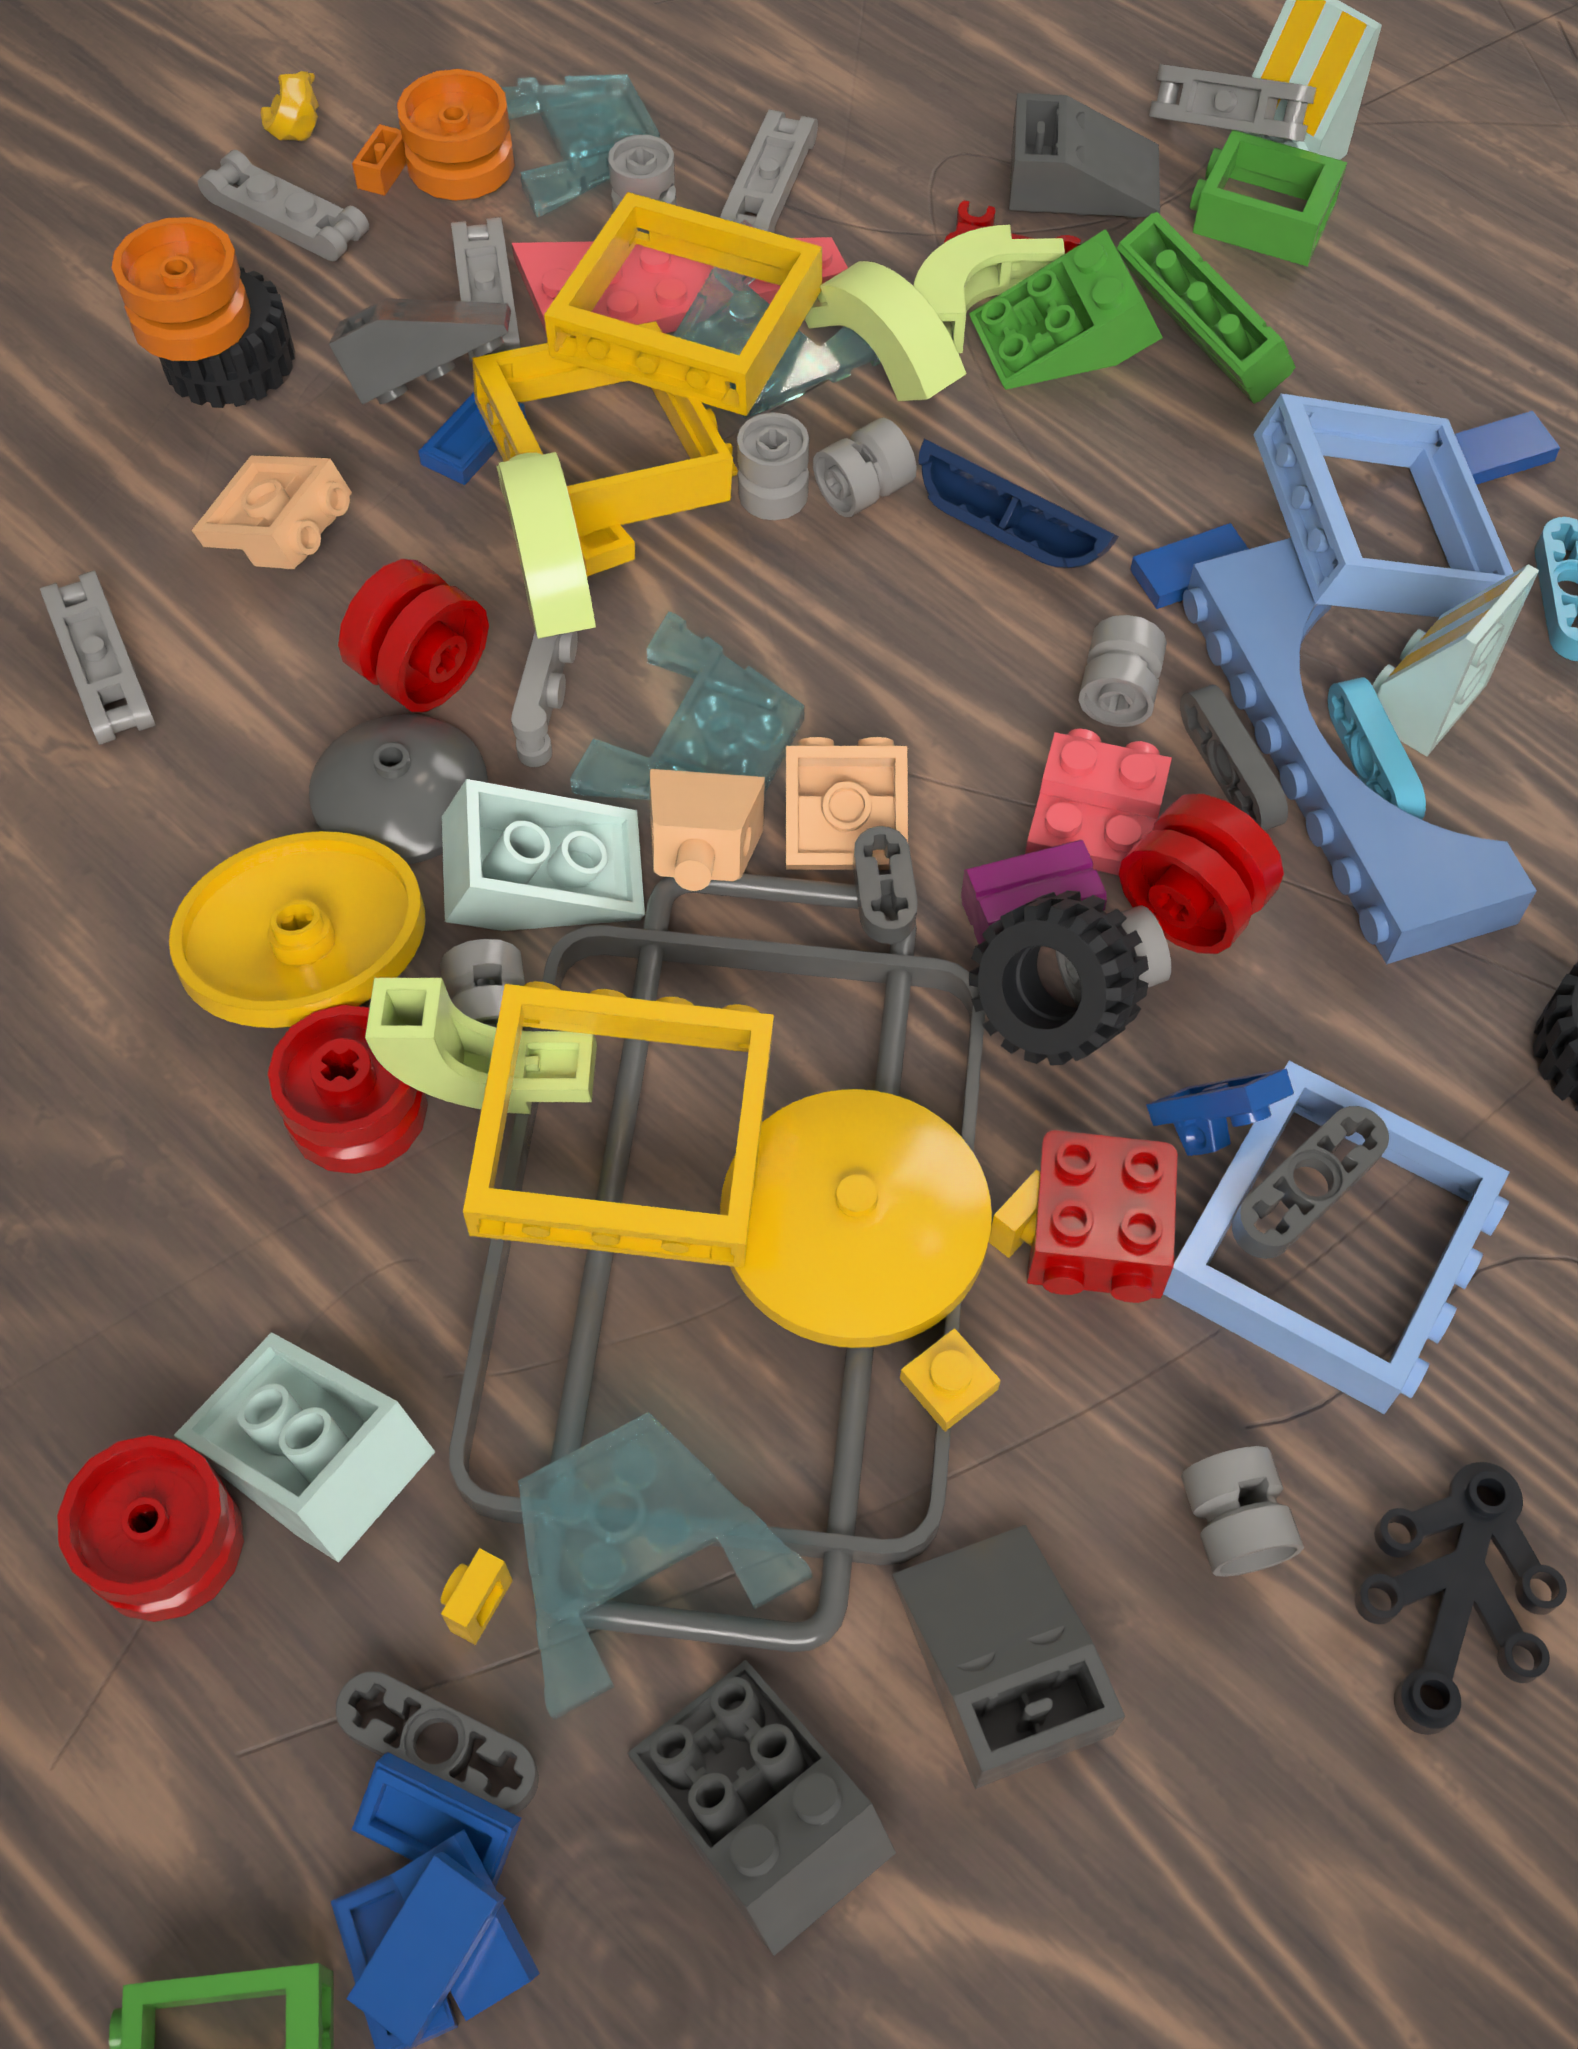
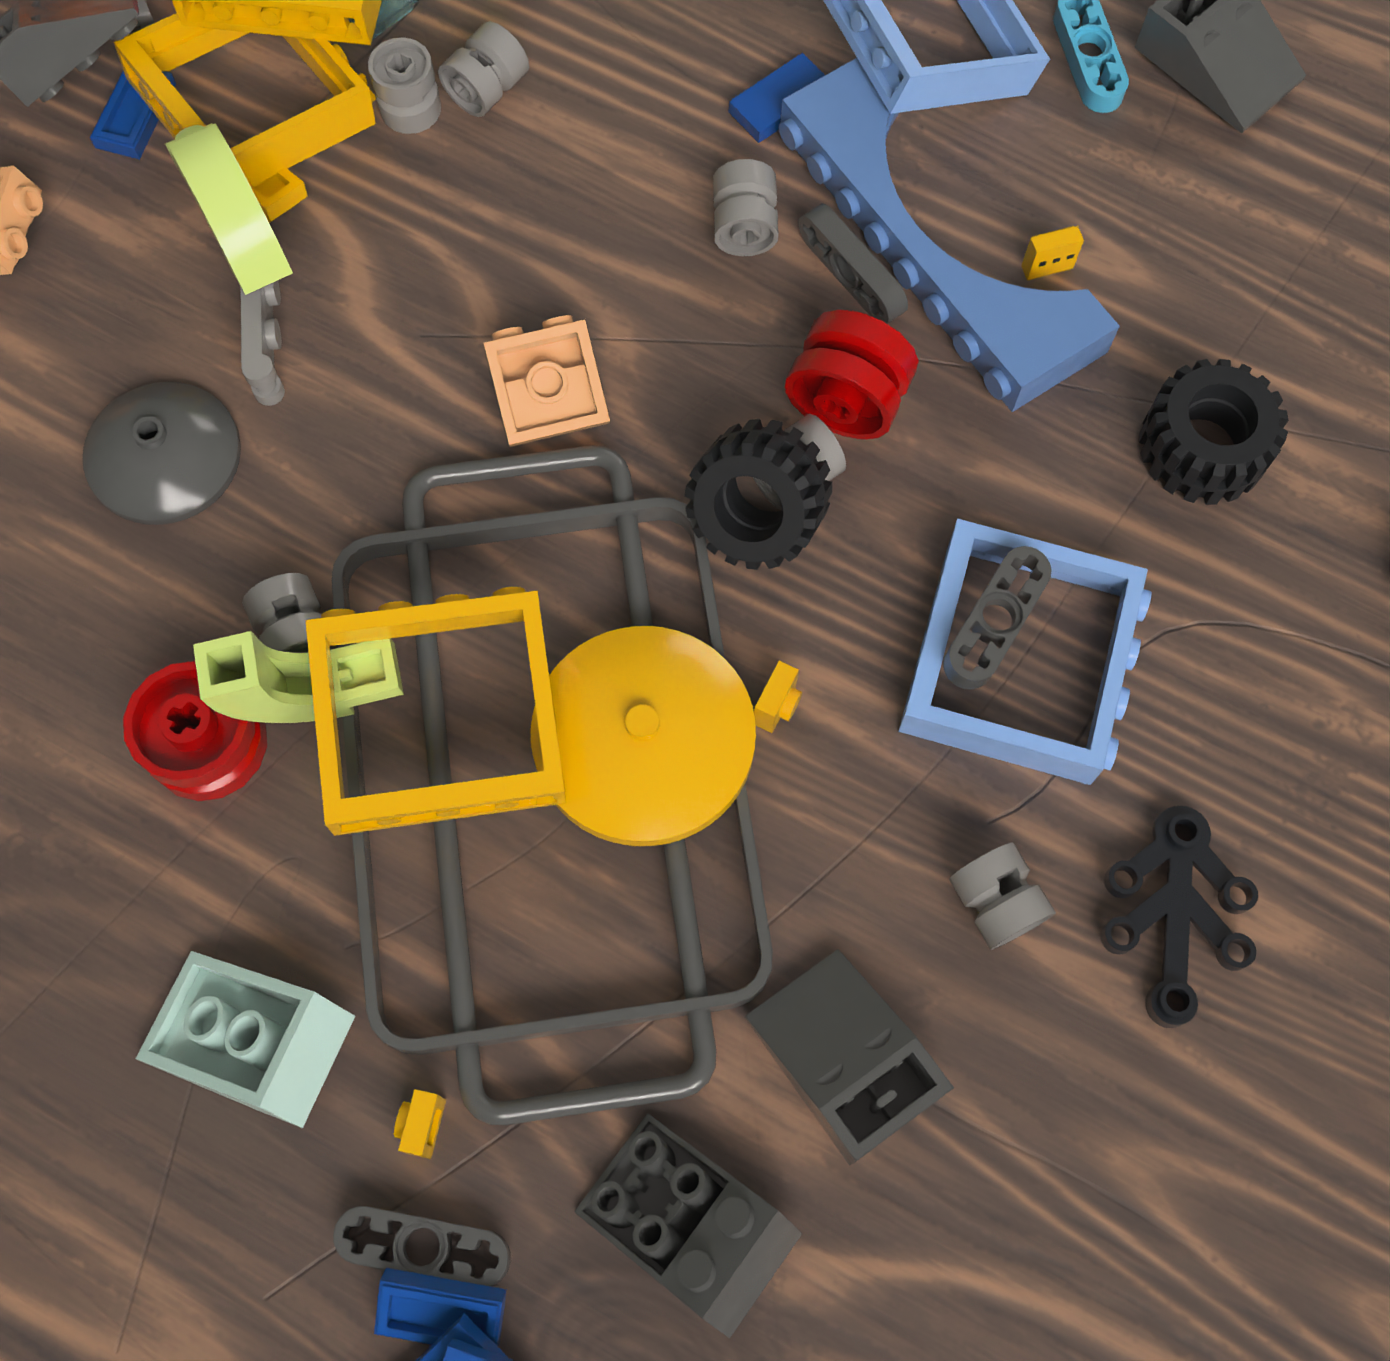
camera: 15 degrees left, 10 degrees up
(150, 1528) = (104, 1139): red wheel -> none
(296, 928) = (110, 602): yellow dish -> none
(413, 635) = (134, 314): red wheel -> none
(538, 860) = (299, 490): light aqua slope -> none
(618, 1519) = (517, 1036): clear light blue wing -> none
(704, 825) = (431, 427): light nougat torso -> none
(725, 725) = (425, 345): clear light blue wing -> none
(897, 883) = (606, 440): dark grey beam -> none
(949, 1379) = (752, 850): yellow plate -> none
(1010, 511) = (617, 82): dark blue brick -> none
(1012, 882) = (698, 422): magenta brick -> none
(1098, 796) = (751, 327): coral plate -> none
(1104, 1216) = (841, 683): bracket -> none
(1202, 1109) = (899, 572): blue hinge -> none
(1374, 745) = (964, 227): medium azure beam -> none
(1451, 662) = (1008, 142): light aqua slope -> none
(1474, 796) = (1052, 252): none -> yellow tile

